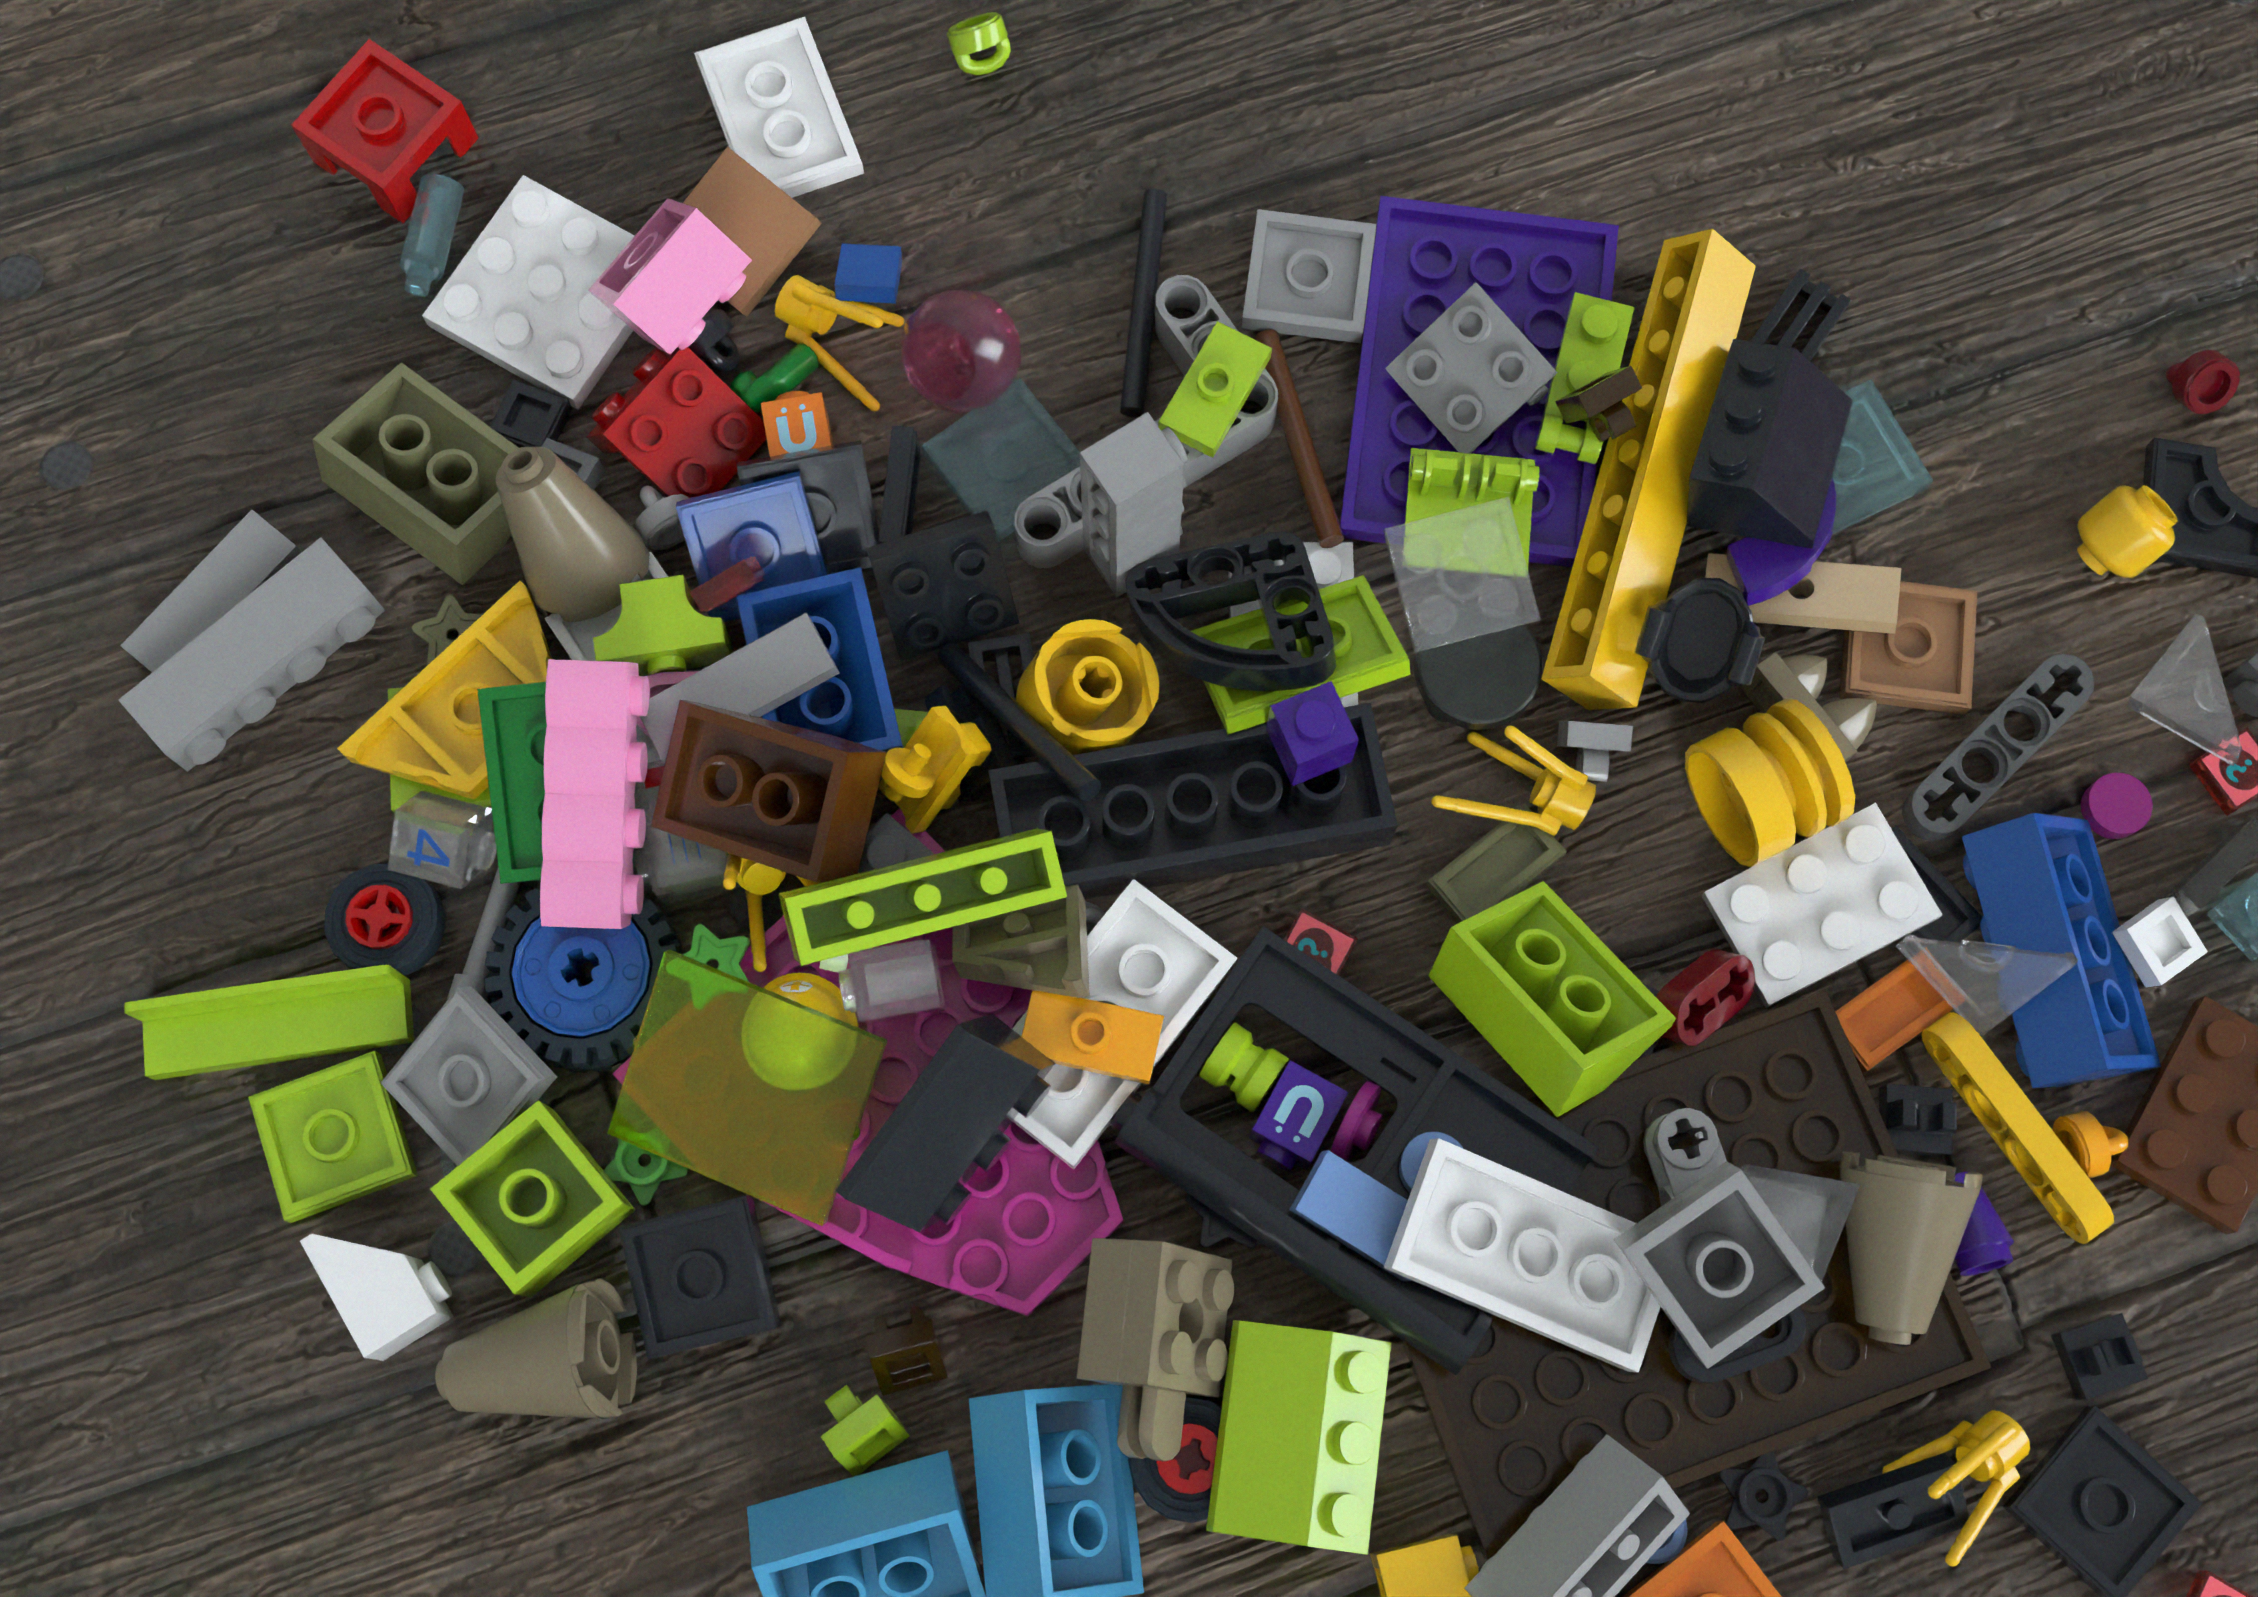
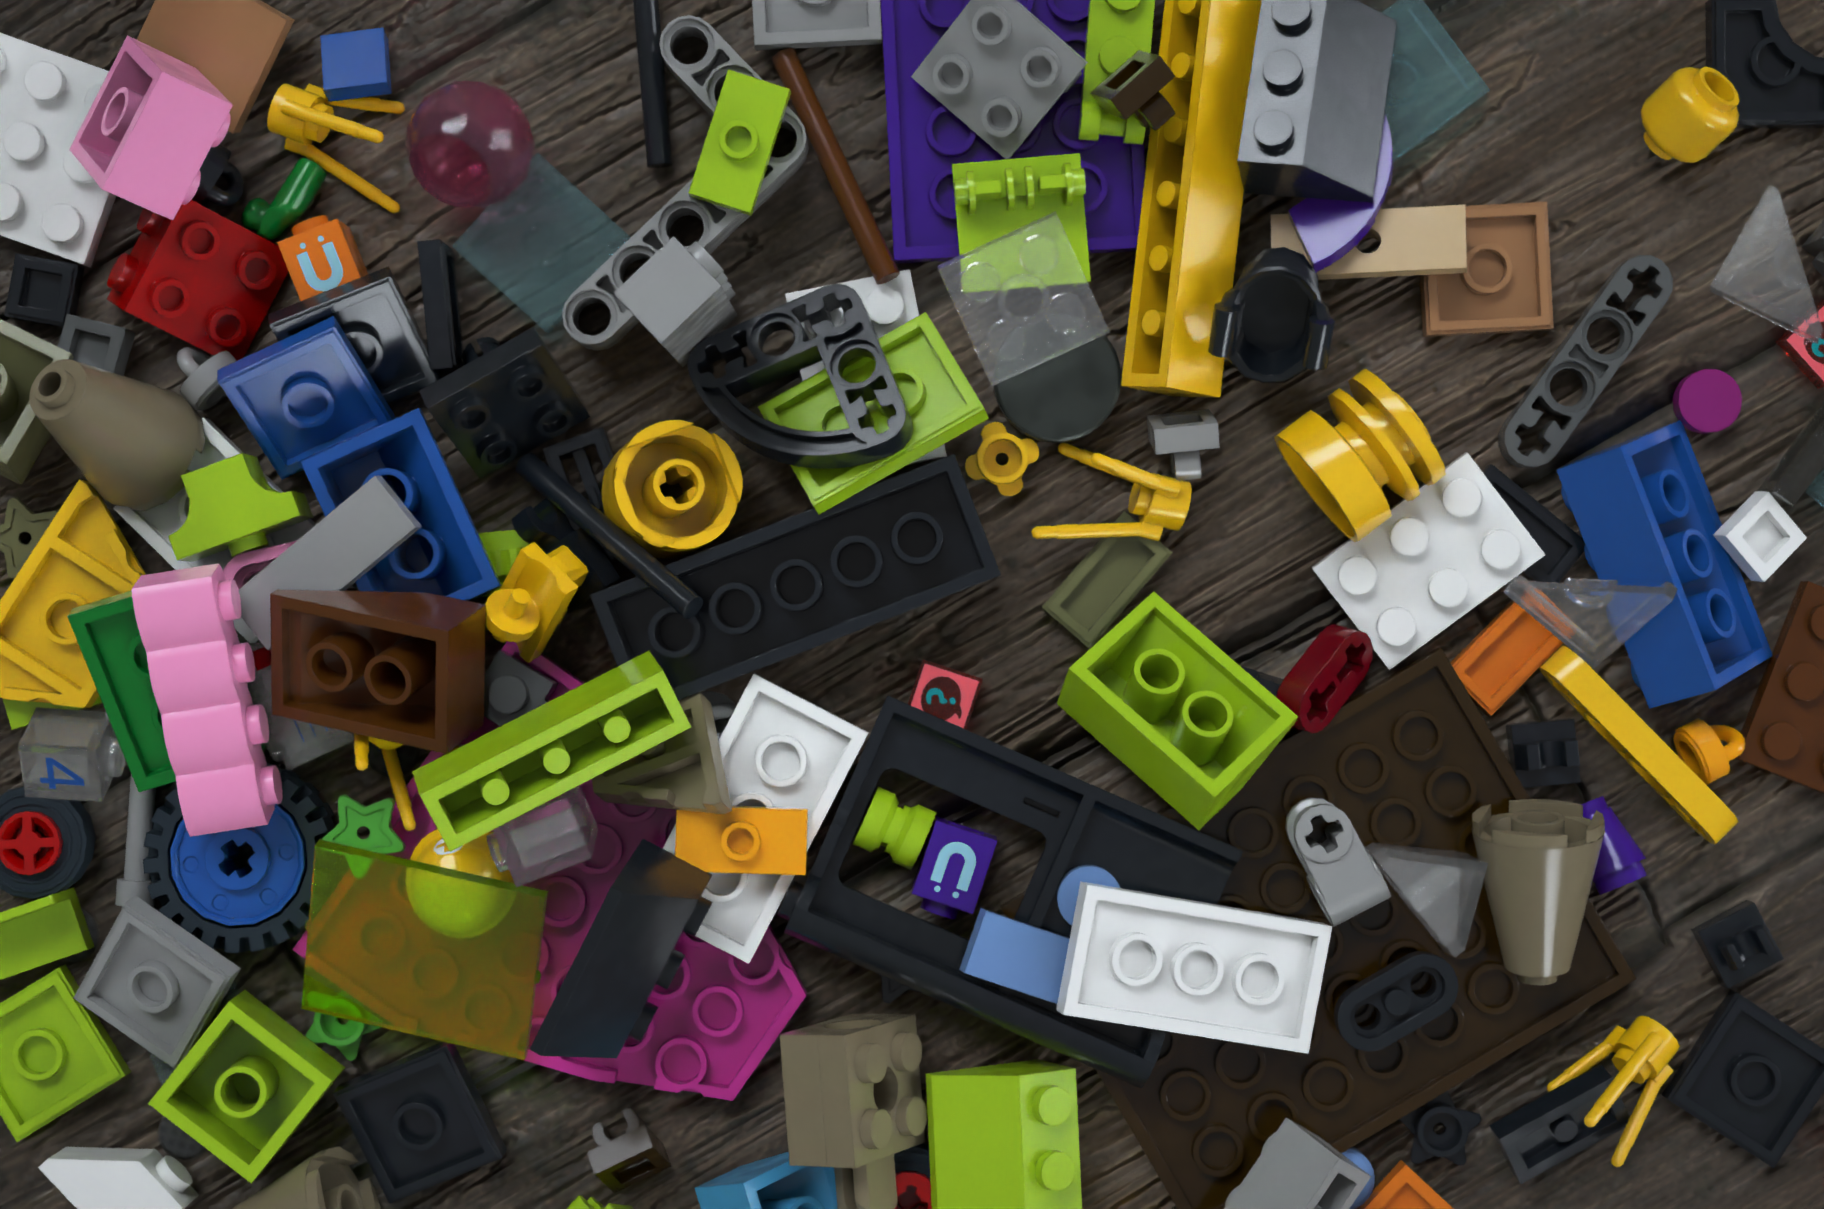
camera: 10 degrees left, 15 degrees up
(728, 584) = (289, 449): clear red tile -> none
(1312, 733) = (900, 507): dark purple brick -> none
(1359, 1123) = (1013, 865): magenta piece -> none
(1430, 732) = (1008, 476): none -> yellow plate
(1719, 1263) = (1365, 956): light grey brick -> none
(1802, 679) = (1373, 340): dark tan tile -> none

